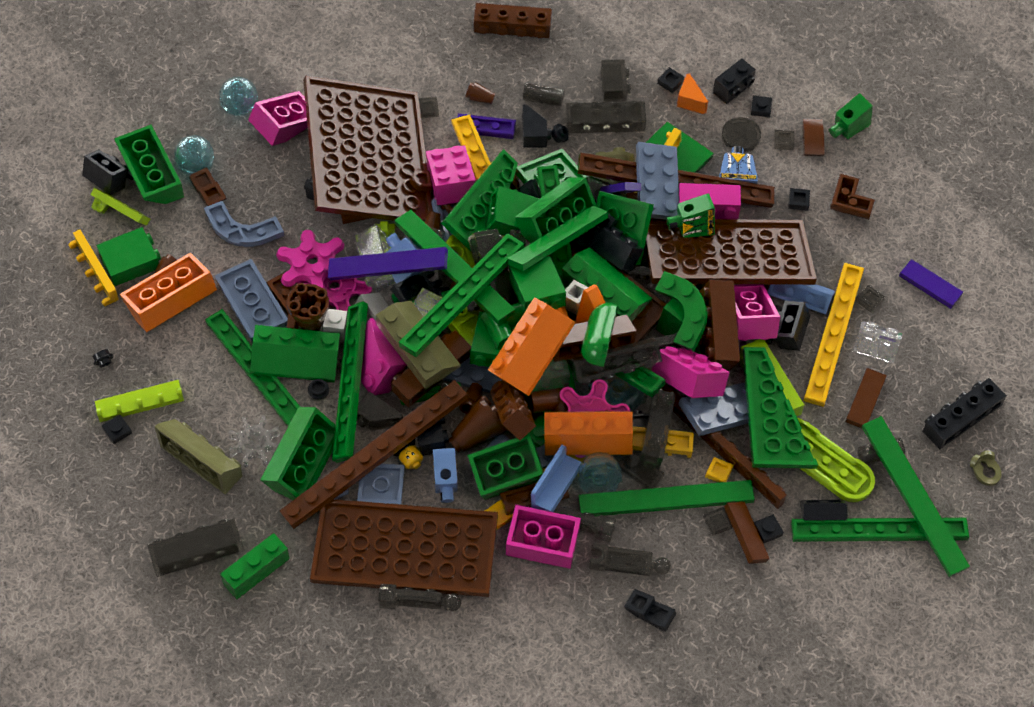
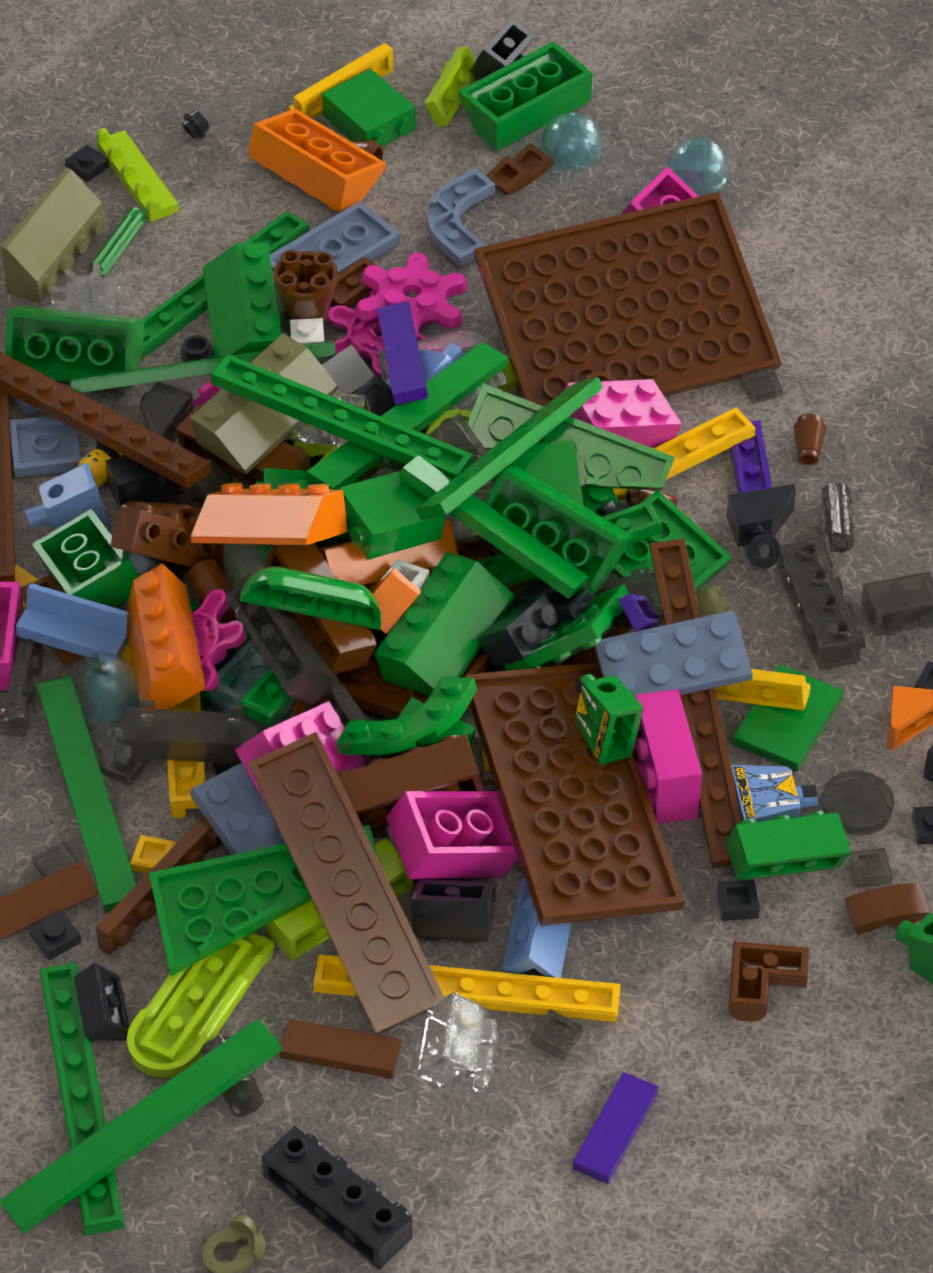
camera: 80 degrees right, 10 degrees down
(201, 420) = (119, 240): none -> green axle
(511, 212) = (509, 449): none -> green tile
(775, 166) = (787, 845): none -> green brick
(783, 363) = (346, 883): none -> reddish brown plate

